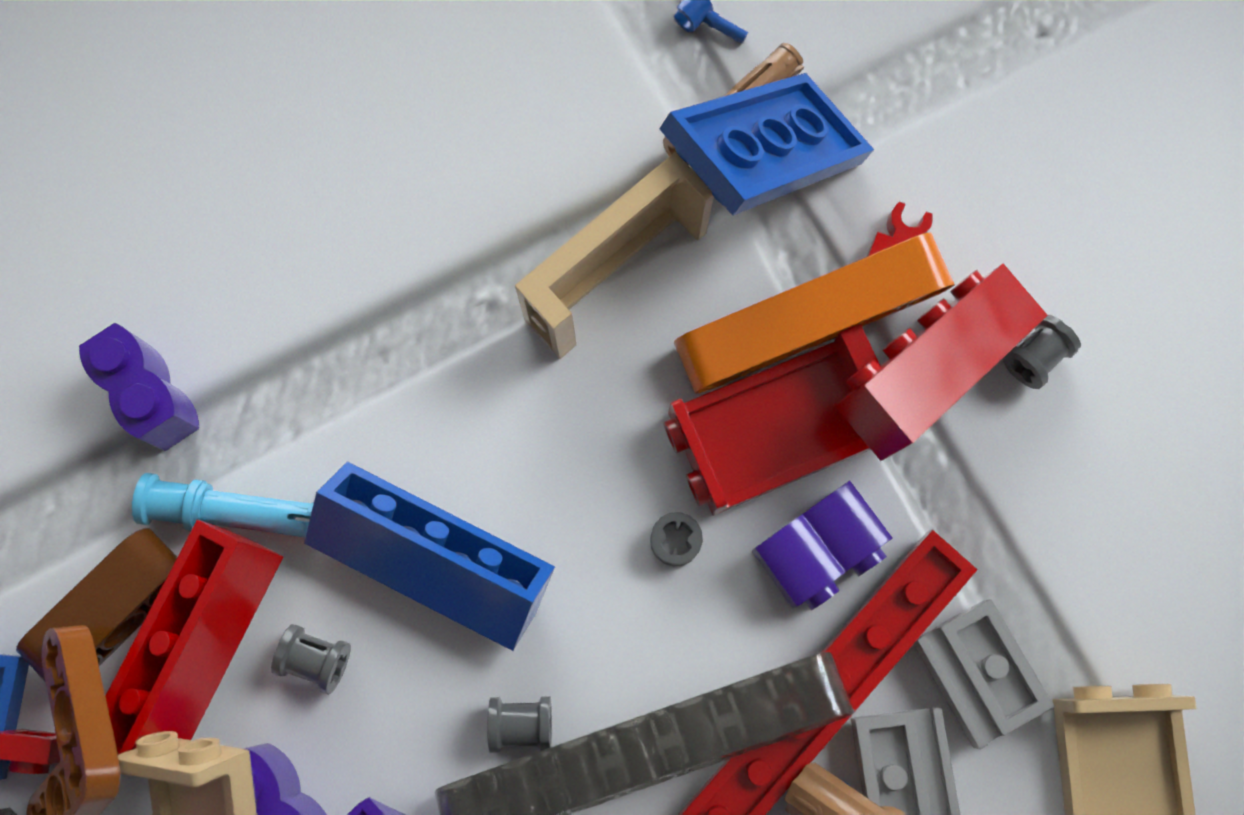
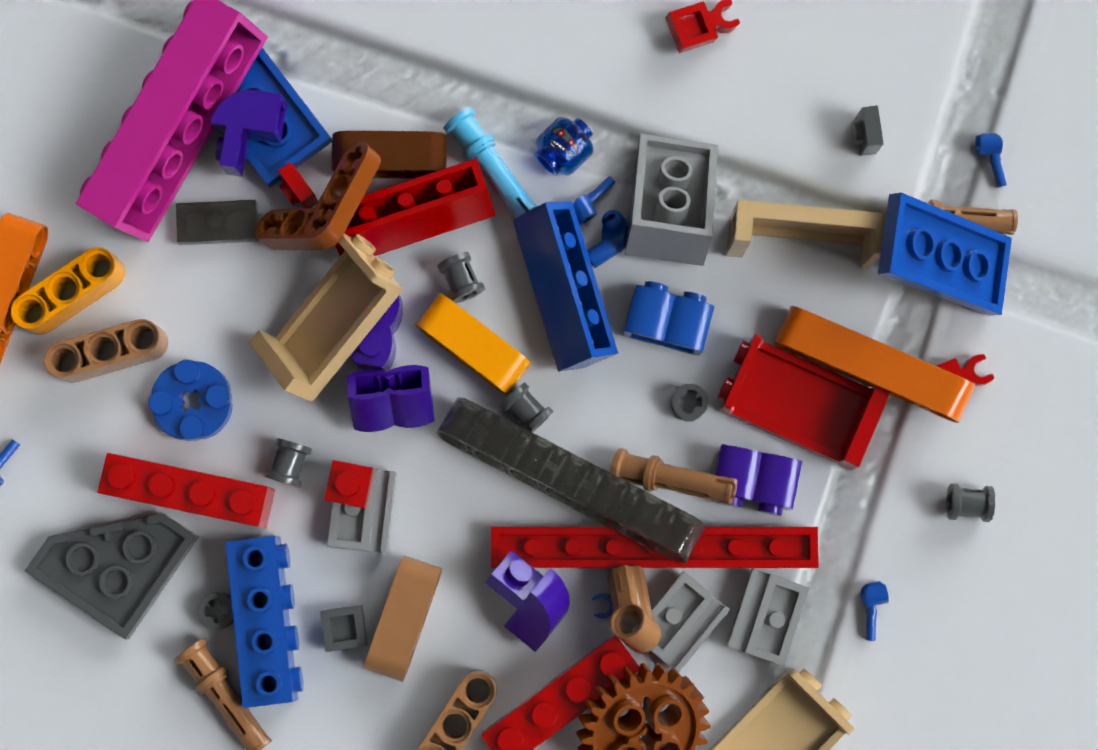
camera: 45 degrees right, 5 degrees up
(138, 387) = (507, 65): dark purple brick -> none
(284, 414) = (564, 146): none -> clear blue head
(302, 170) = (697, 27): none -> red plate
(365, 453) = (583, 204): none -> blue hand
(393, 716) = (473, 344): none -> light orange beam
(430, 456) = (612, 240): none -> blue arm
(451, 359) = (672, 200): none -> light grey slope
(568, 477) = (668, 319): none -> blue brick
(570, 105) = (867, 130): none -> dark grey plate
(721, 650) = (655, 474): none -> medium nougat pin
(941, 362) = (910, 450): brick -> none
(1052, 539) = (872, 595): none -> blue hand

